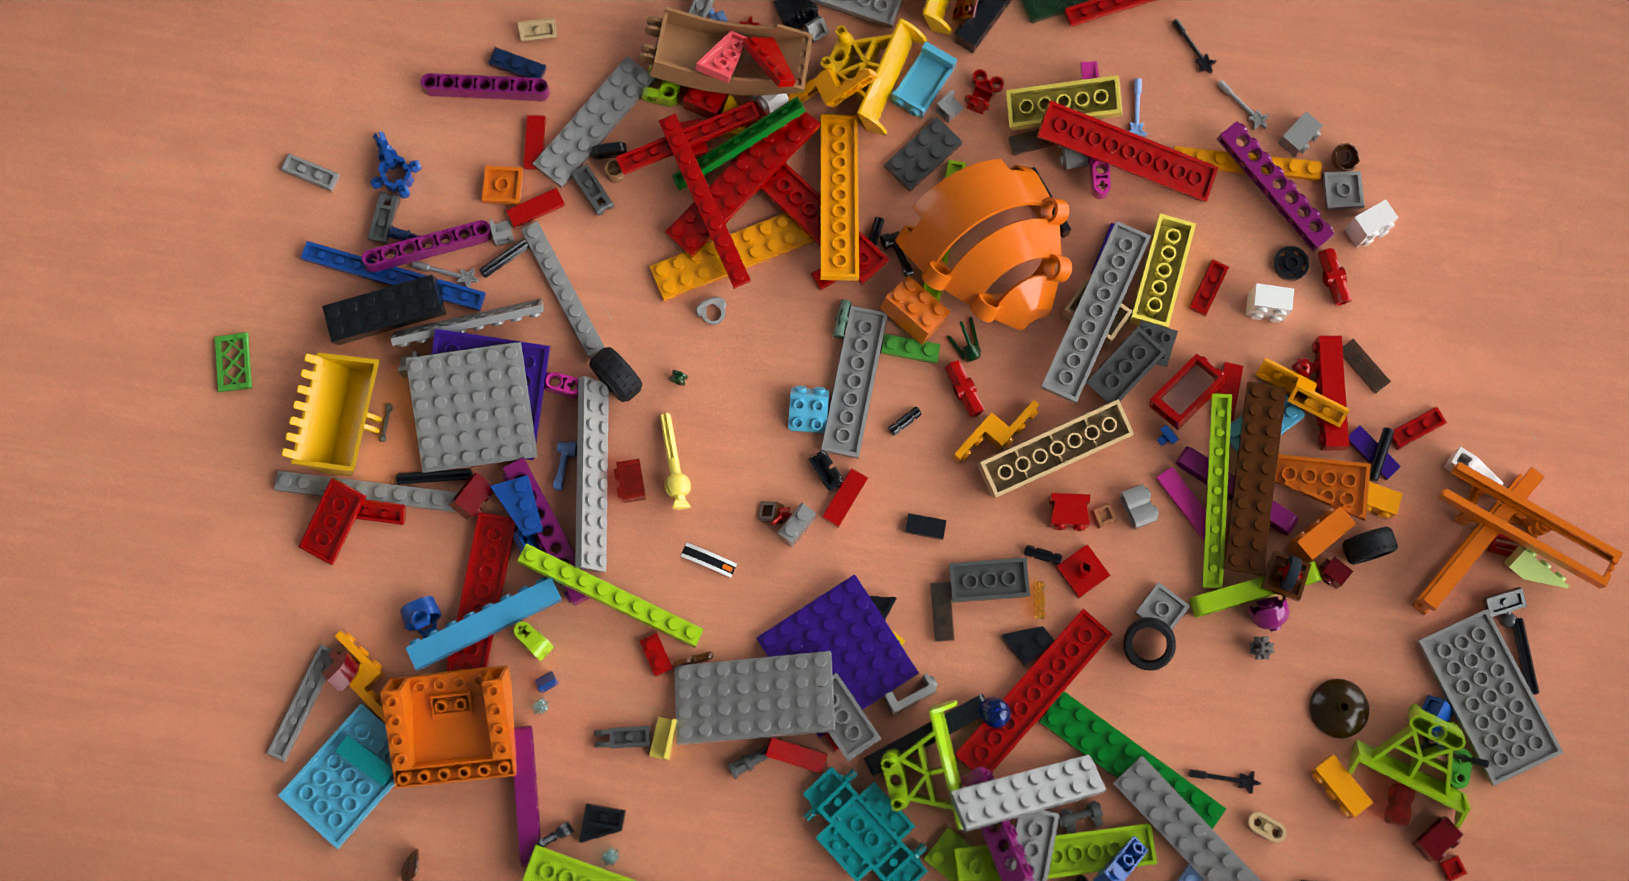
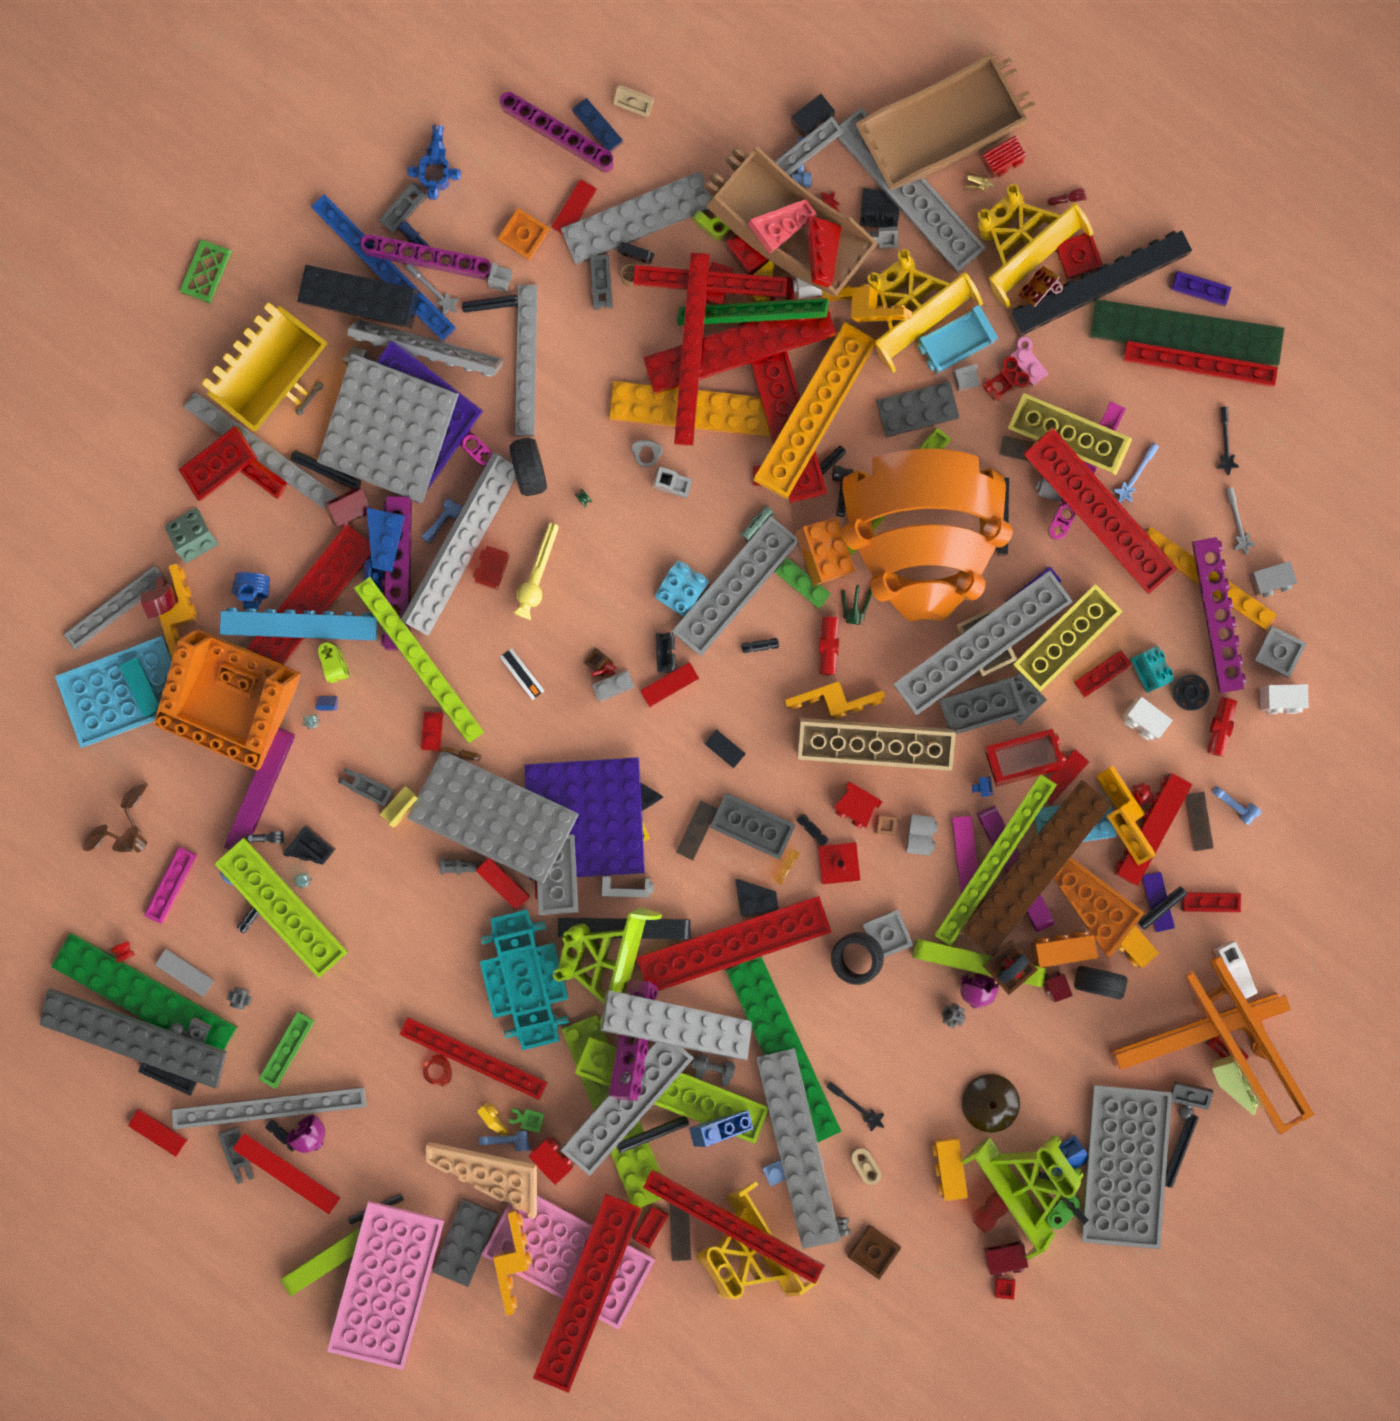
camera: 40 degrees right, 10 degrees up
(310, 172) = (360, 129): light grey tile -> none
(340, 599) = (190, 535): none -> sand green bracket
(535, 207) = (542, 271): red tile -> none
(748, 323) = (669, 482): none -> light grey brick
(994, 67) = (1028, 362): none -> bright pink hinge
(995, 712) = (690, 942): clear blue hair -> none
(1248, 261) = (1152, 669): none -> teal bracket
(1345, 157) = (1300, 622): reddish brown hair -> none
(1402, 335) = (1248, 813): none -> medium blue brick

